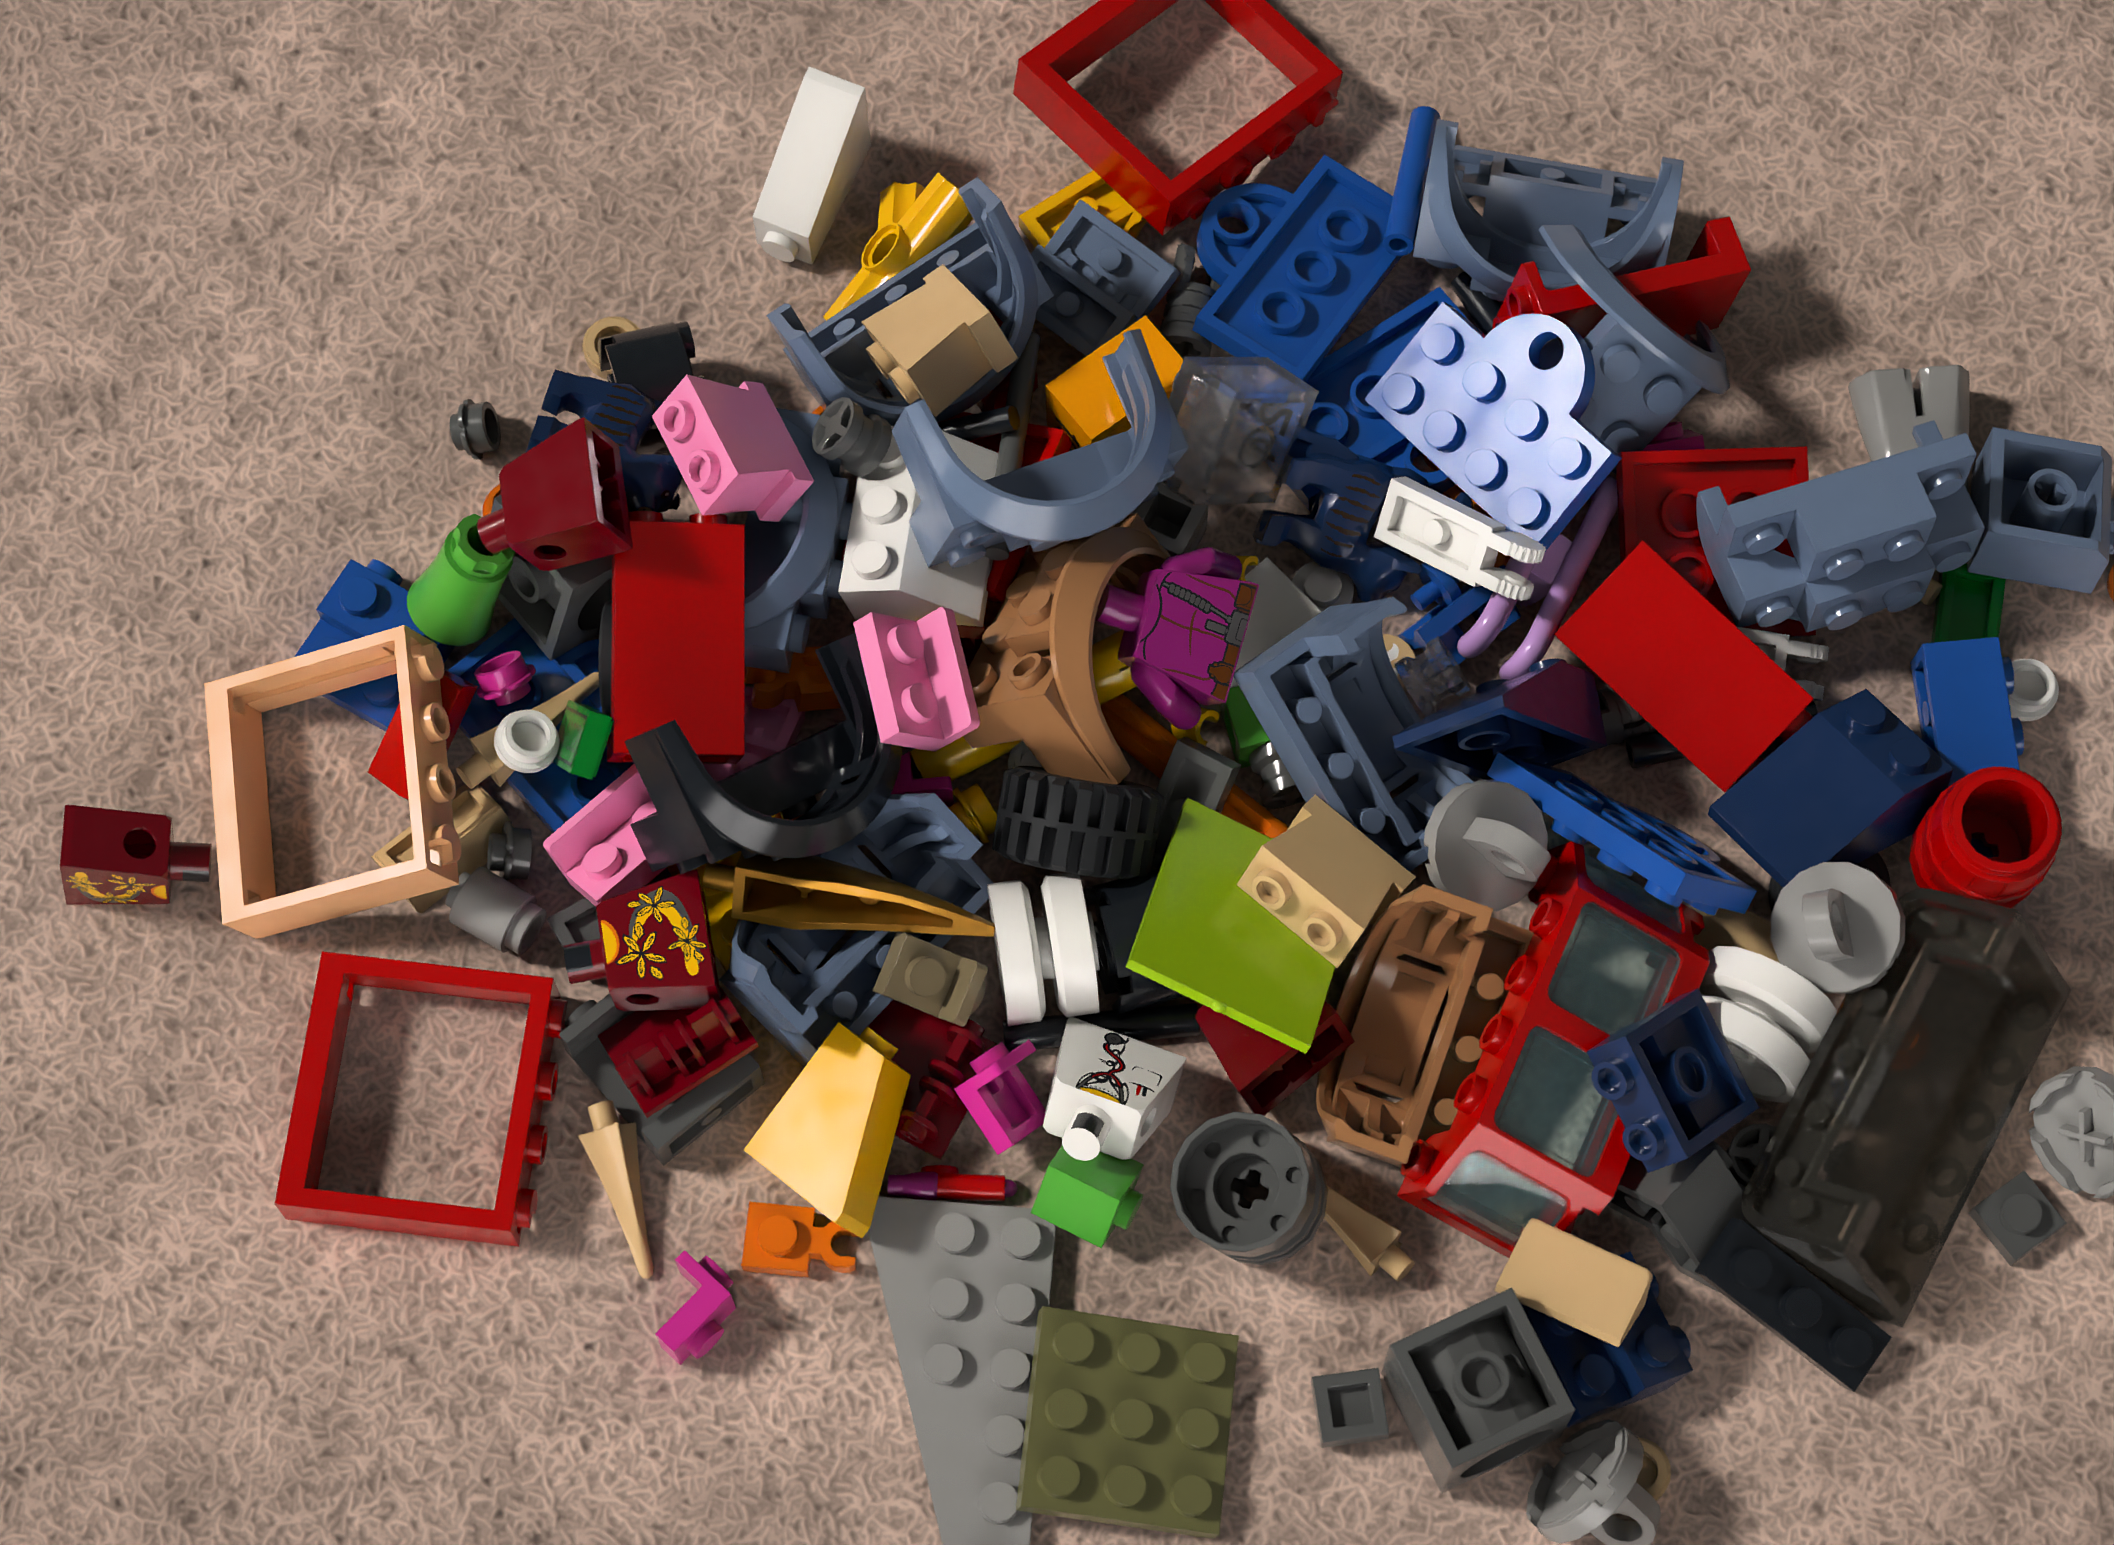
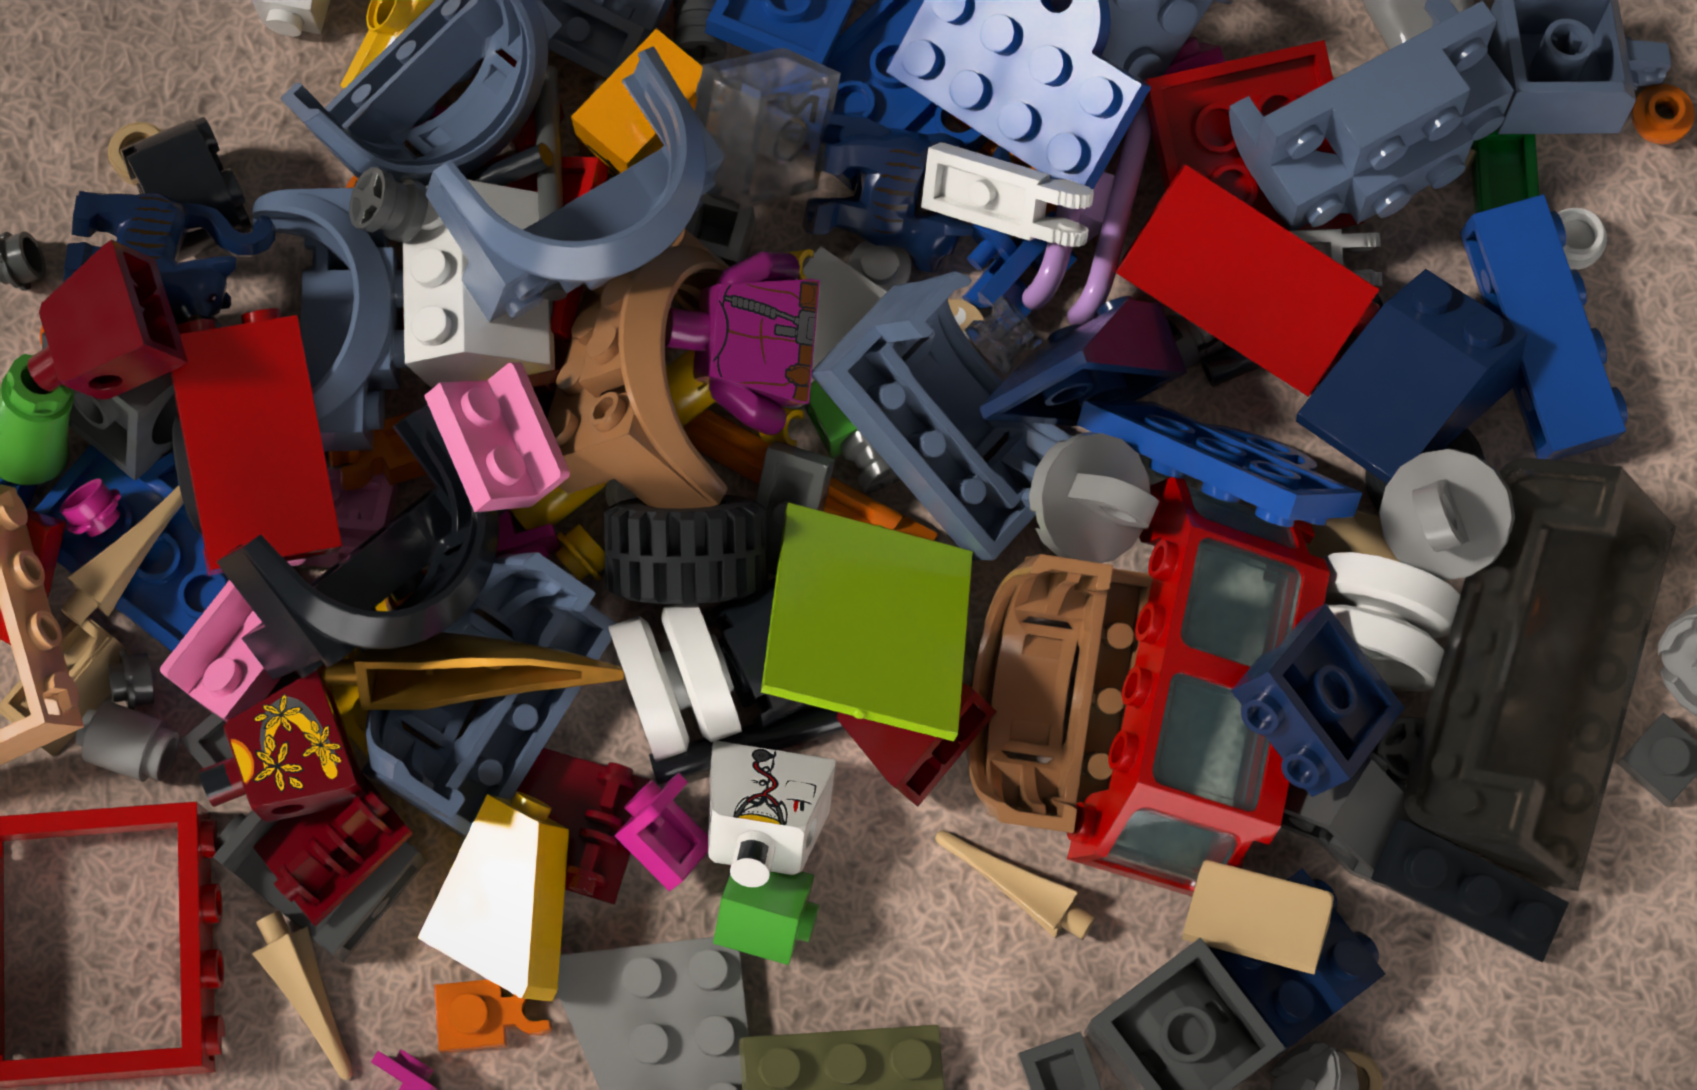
camera: 10 degrees left, 5 degrees up
(526, 741) = (124, 570): white plate -> none
(582, 739) = (177, 560): green tile -> none
(732, 448) = (270, 240): bright pink hips -> none
(931, 979) = (571, 731): dark tan bracket -> none
(937, 341) = (455, 93): tan hips -> none
(946, 1183) = (625, 927): piece -> none
(1238, 1153) = (884, 887): dark grey wheel -> none
(1325, 880) = (939, 561): tan hips -> none
(2009, 815) = (1595, 373): red piece -> none

